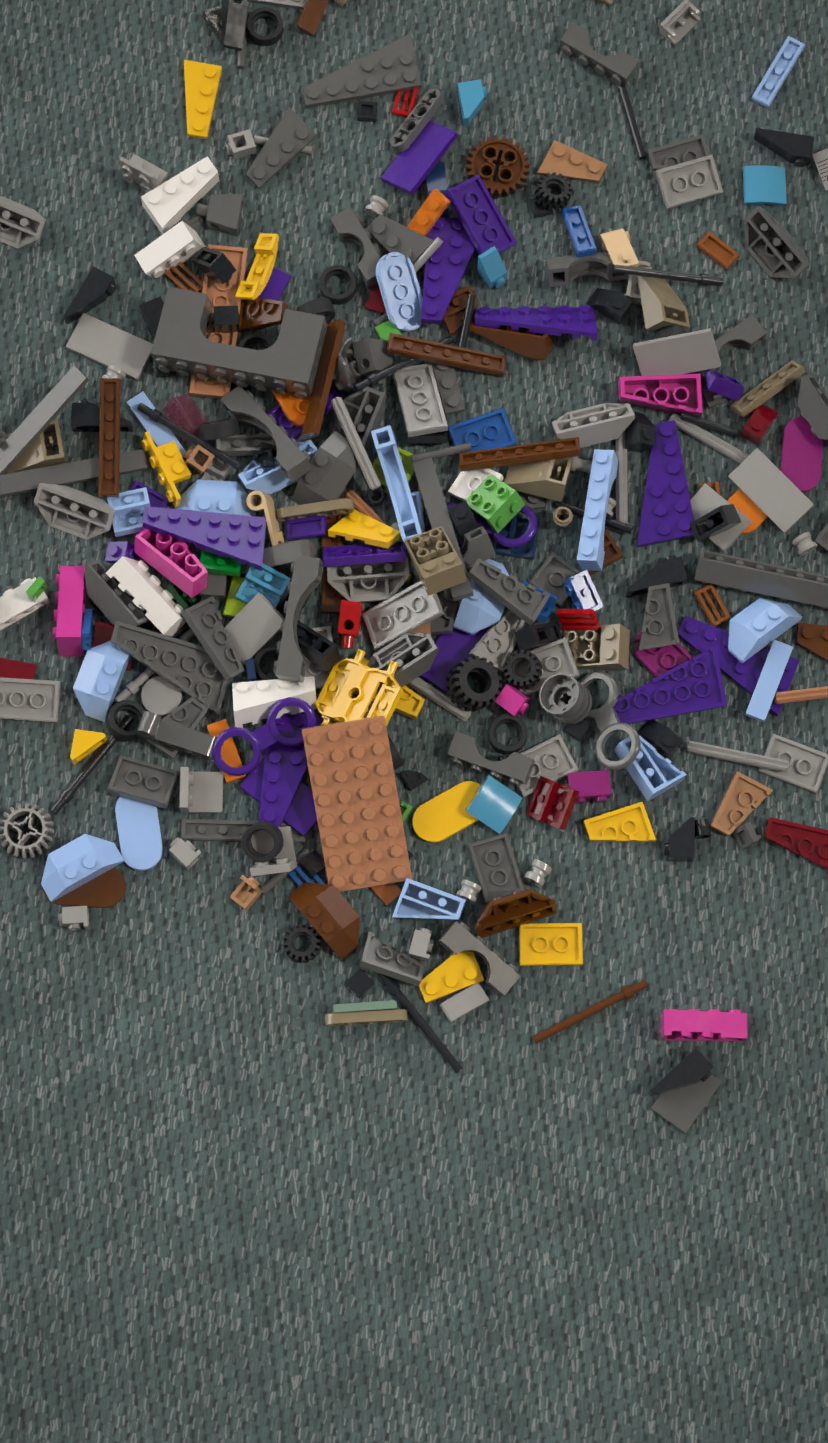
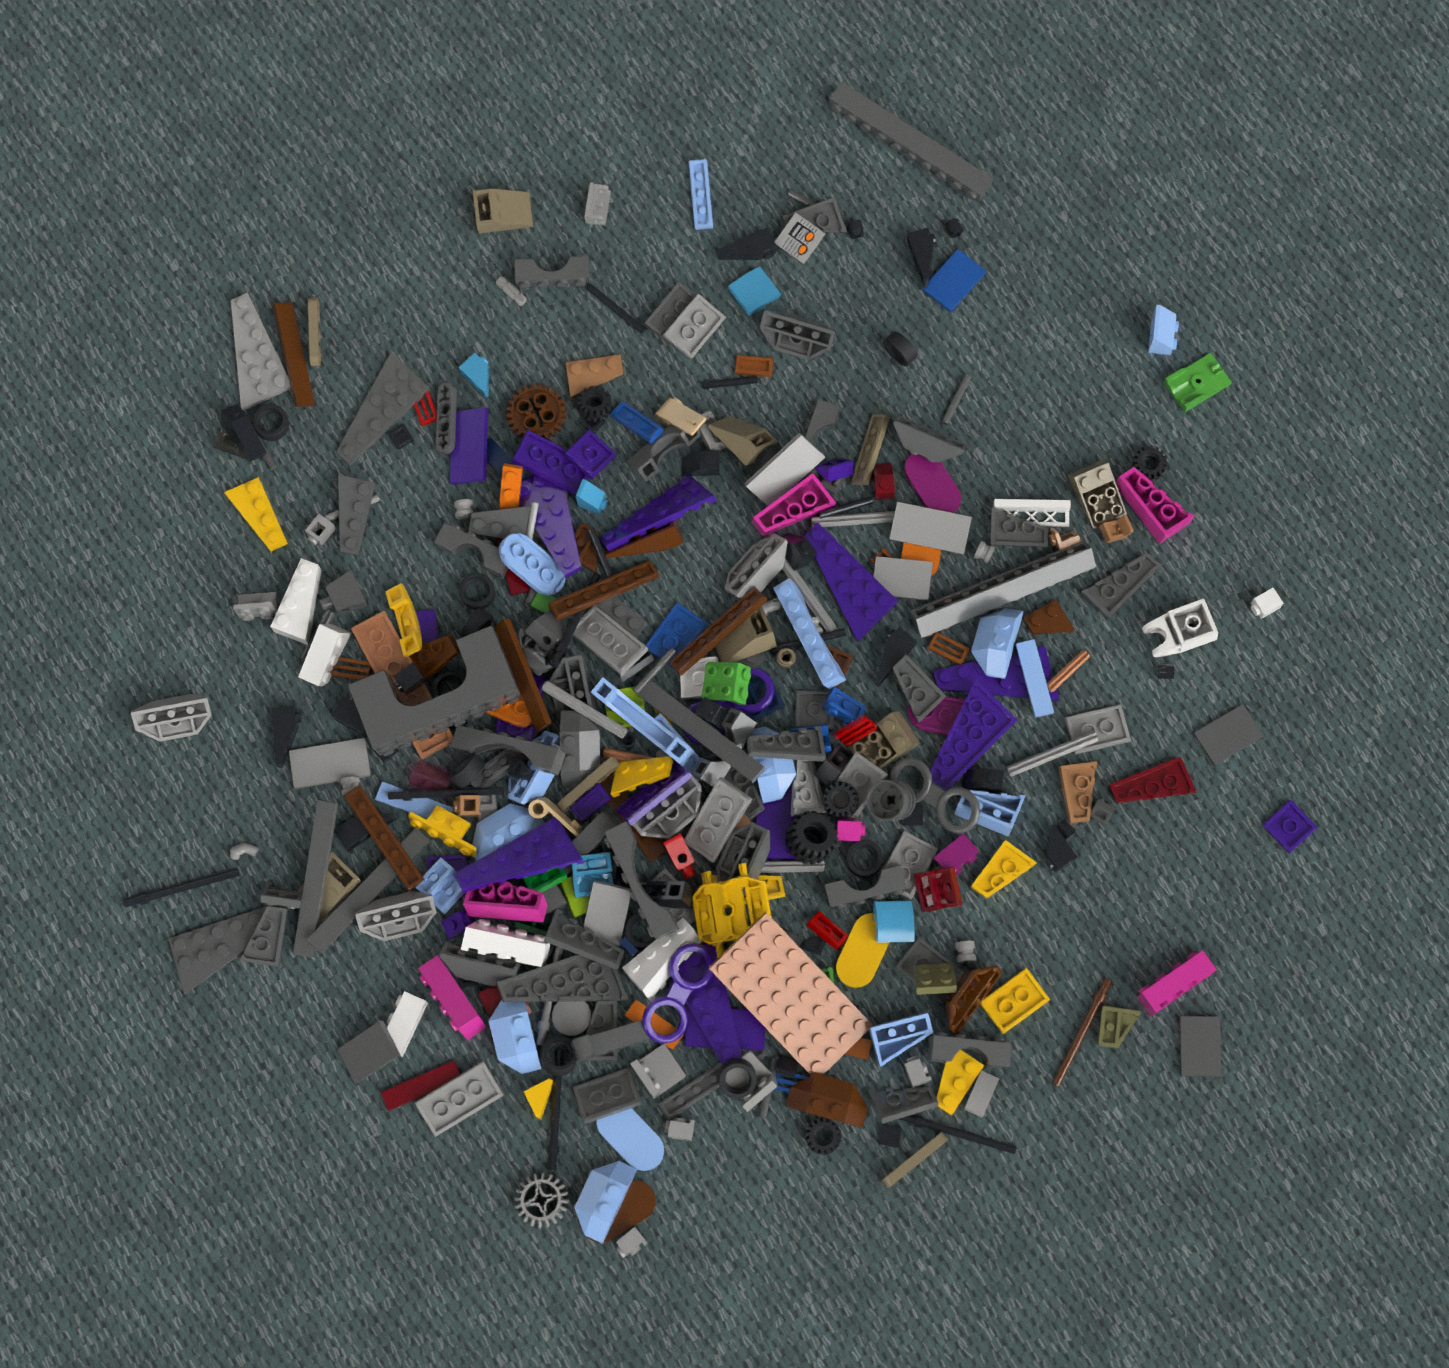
camera: 30 degrees left, 0 degrees up
(36, 589) = (413, 1003): bright green tile -> none
(87, 629) = (476, 1004): blue tile -> none
(214, 264) = (368, 642): black slope -> none
(246, 892) = (751, 1127): medium nougat bracket -> none
(365, 1006) = (908, 1152): sand green tile -> none
(428, 773) = (827, 932): none -> red tile
(435, 560) = (717, 761): dark tan slope -> none
(468, 891) = (922, 1004): light grey wheel -> none
(493, 875) = (934, 978): none -> olive plate
(518, 232) = (590, 454): none -> dark purple tile
(551, 48) = (511, 291): none -> light grey axle
(623, 1025) = (1115, 1025): none -> olive wing
(686, 251) = (730, 382): none -> black bar
(686, 1073) = (1191, 1026): black slope -> none
(701, 279) = (758, 397): black bar -> none
(715, 522) = (907, 582): black slope -> none

